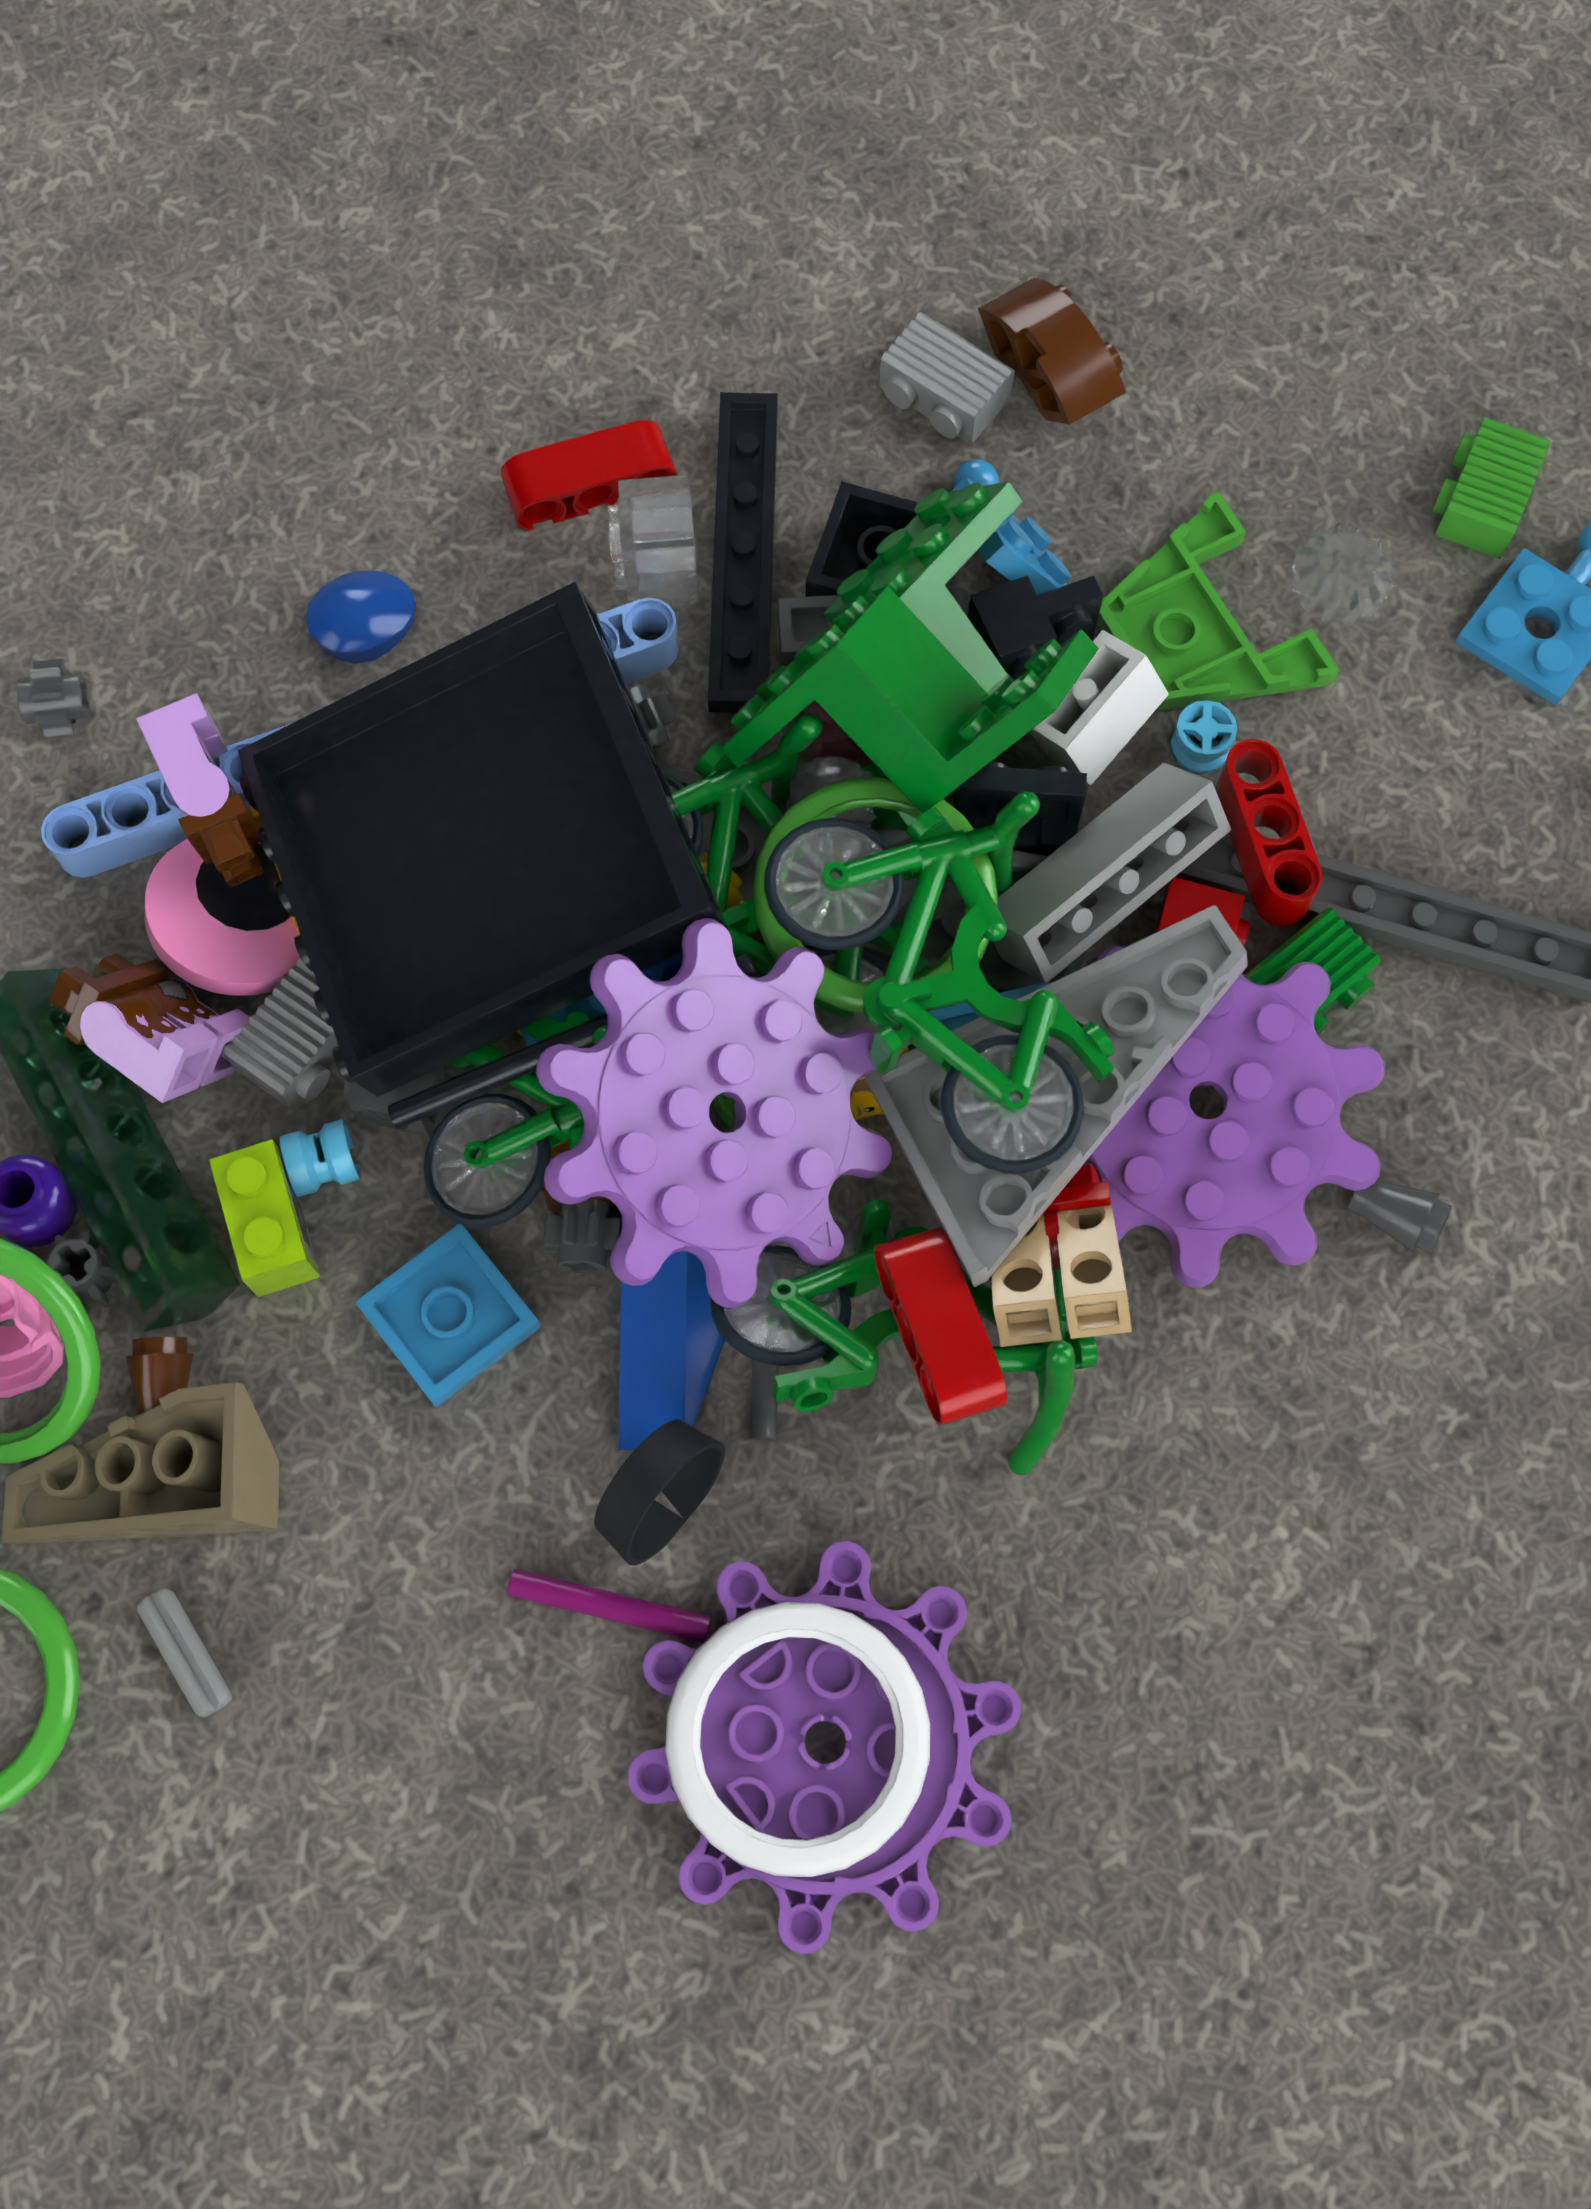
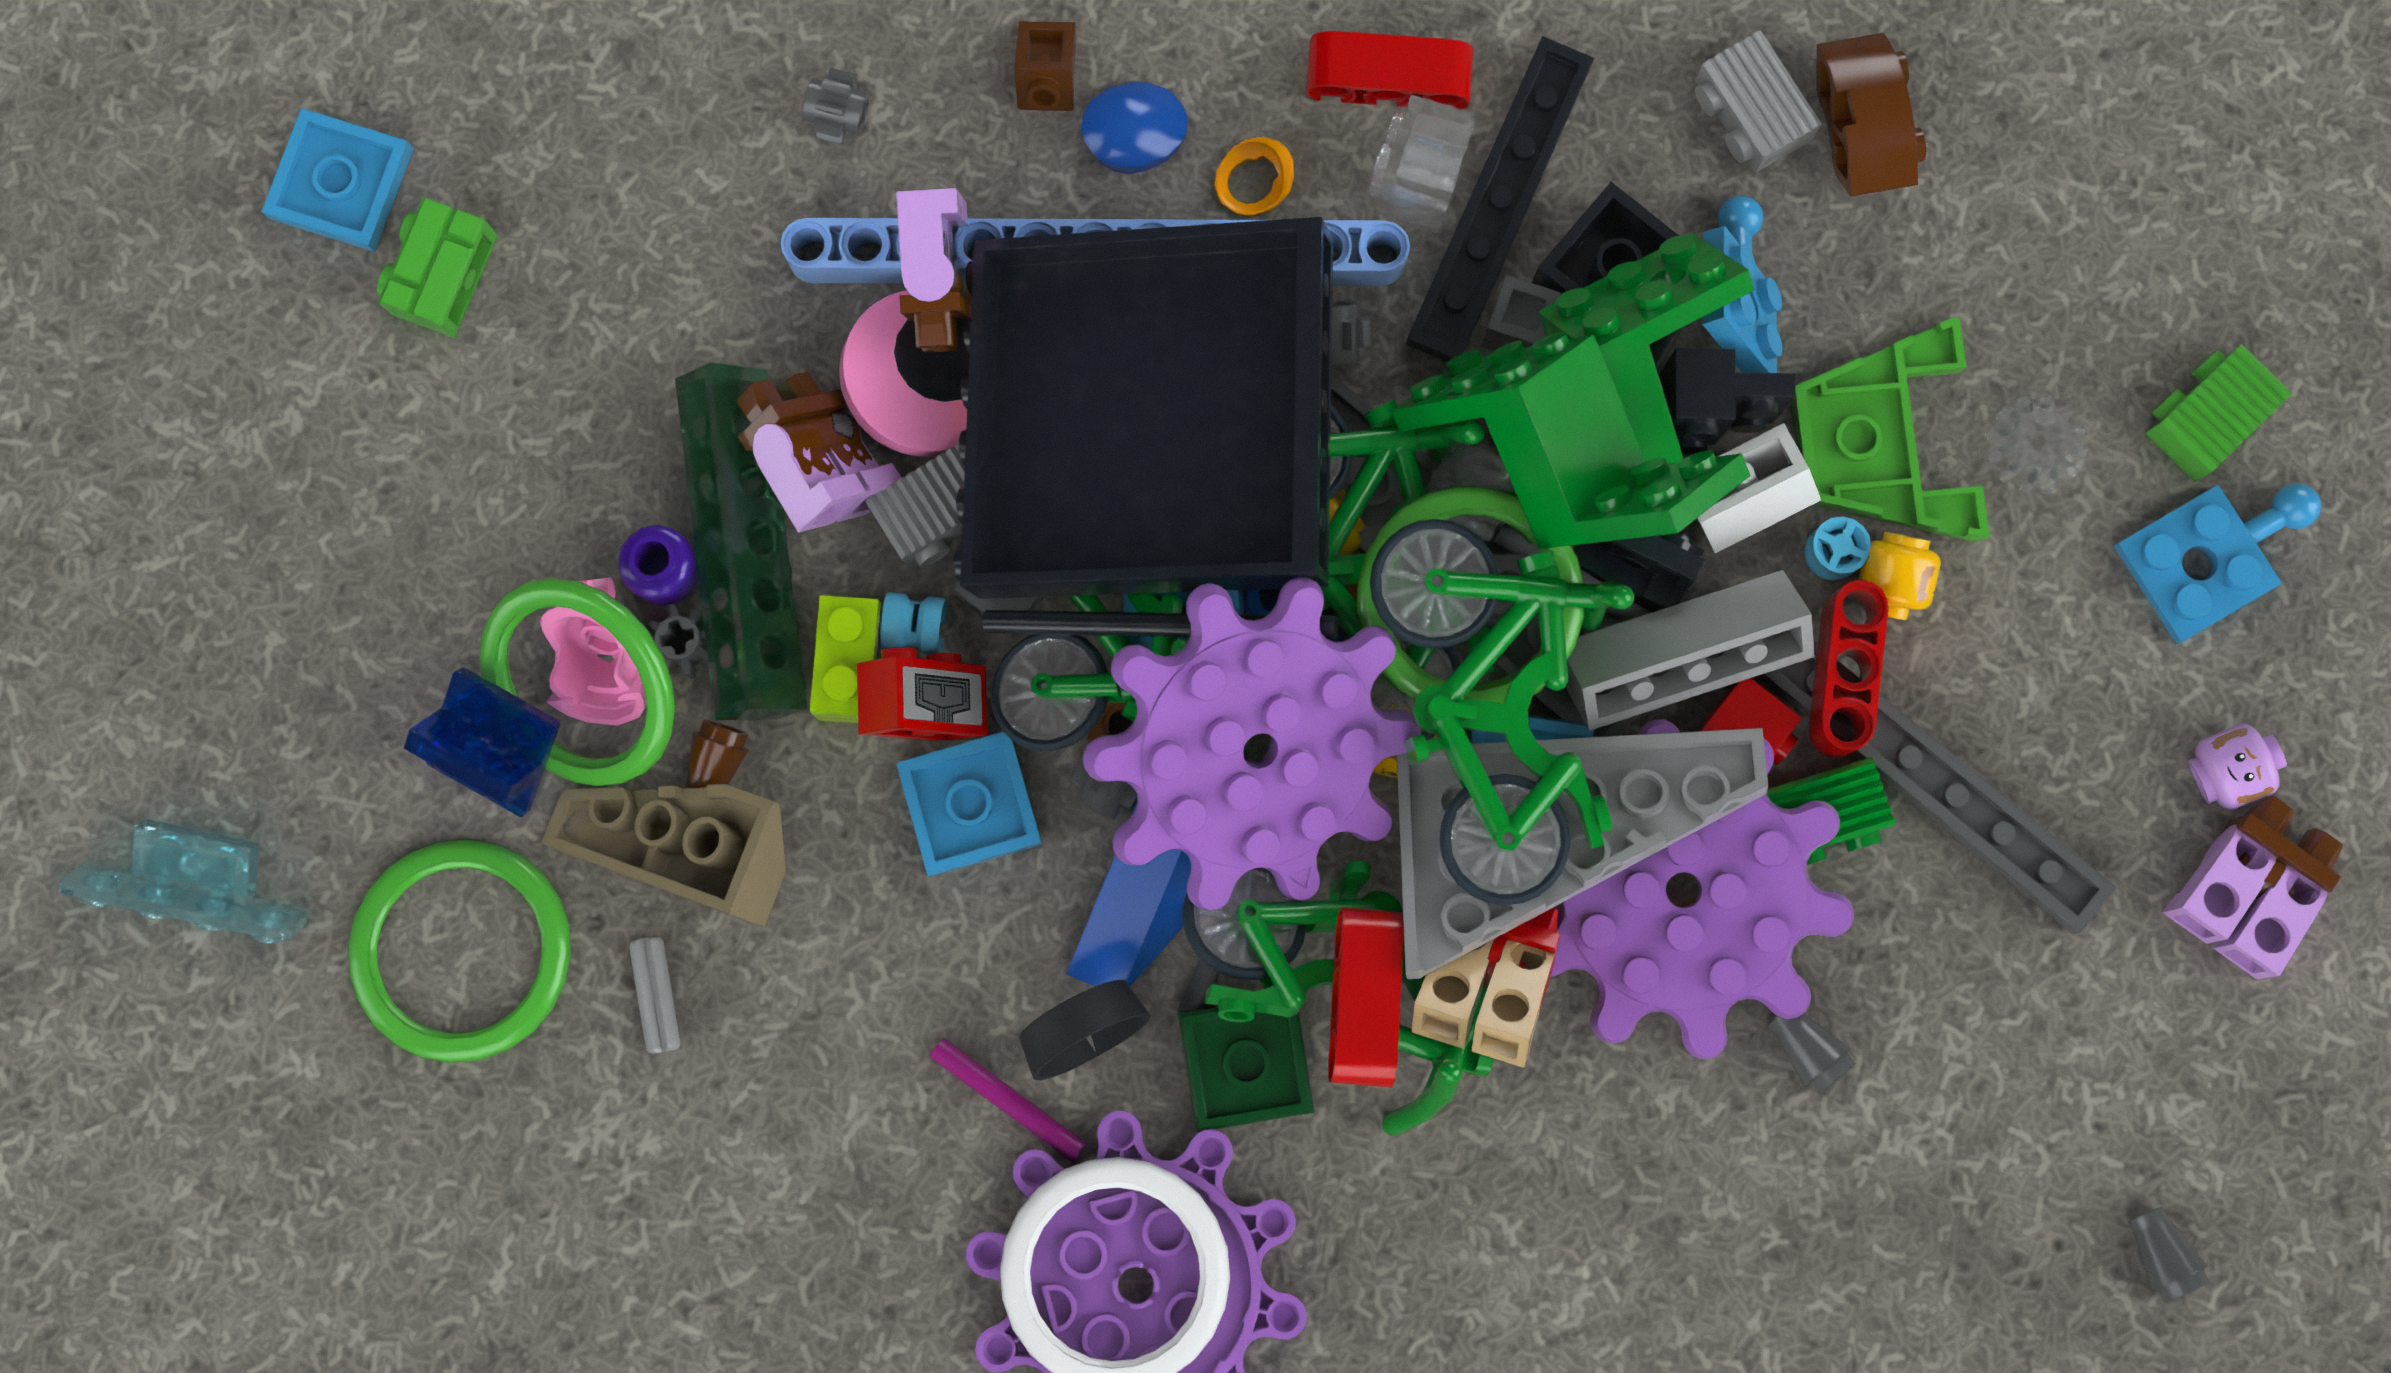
camera: 25 degrees right, 10 degrees up
(252, 591) = (1045, 65): none -> reddish brown bracket
(355, 1221) = (921, 697): none -> red brick
(488, 591) = (1255, 150): none -> light orange piece
(843, 1463) = (1244, 1068): none -> dark green tile
(1280, 723) = (1903, 571): none -> yellow head

